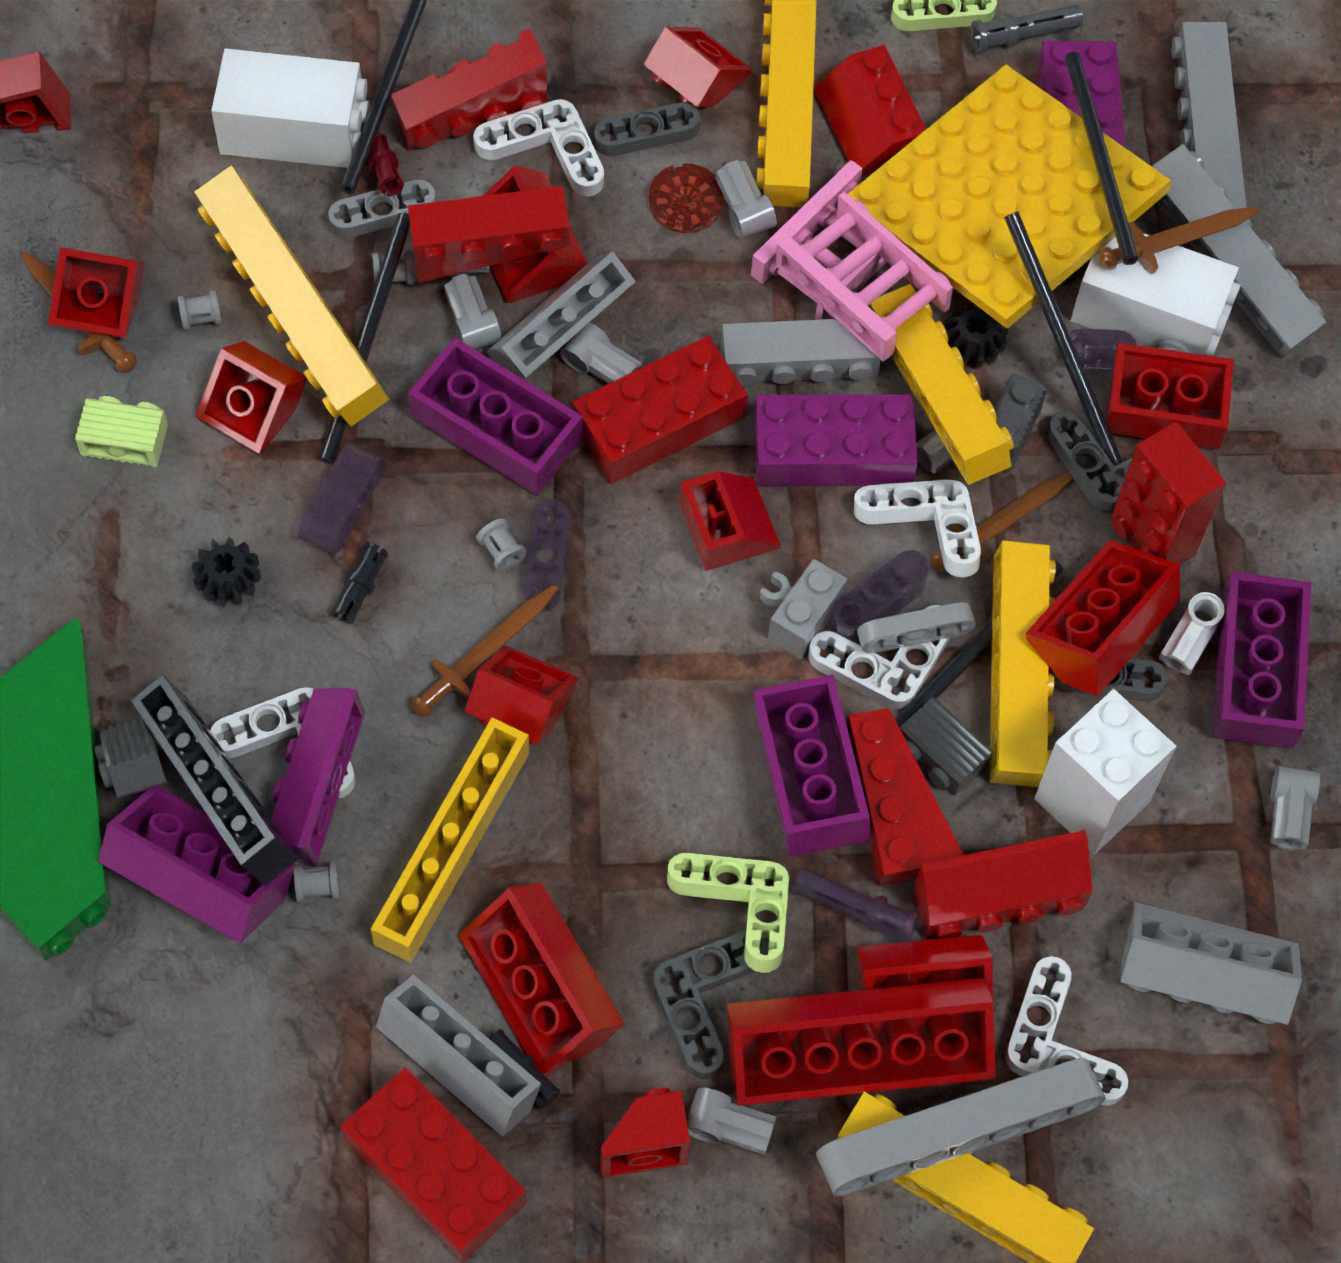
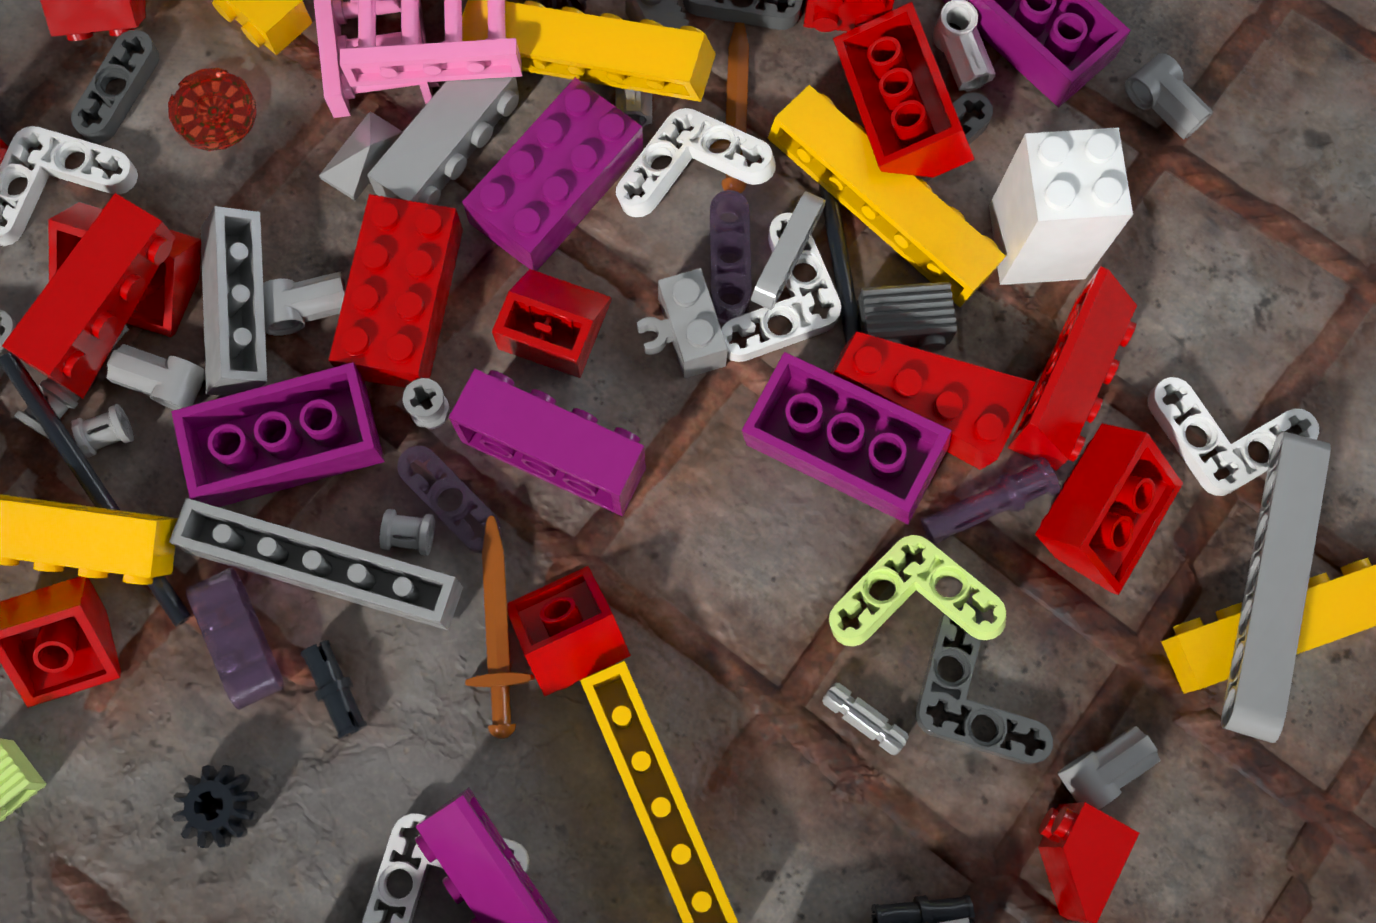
camera: 50 degrees left, 10 degrees up
(408, 312) = (102, 430): none -> light grey bush
(432, 507) = (317, 564): none -> light grey brick
(540, 978) = (853, 830): red slope -> none
(598, 476) = (416, 393): none -> light grey bush
(626, 934) = (865, 718): none -> light grey axle
(639, 581) = (549, 440): none -> magenta brick
(737, 309) = (359, 155): none -> light grey slope
(748, 209) = (274, 66): light grey piece -> none
(861, 1041) = (1131, 602): red brick -> none
(1211, 964) = (1257, 266): light grey slope -> none

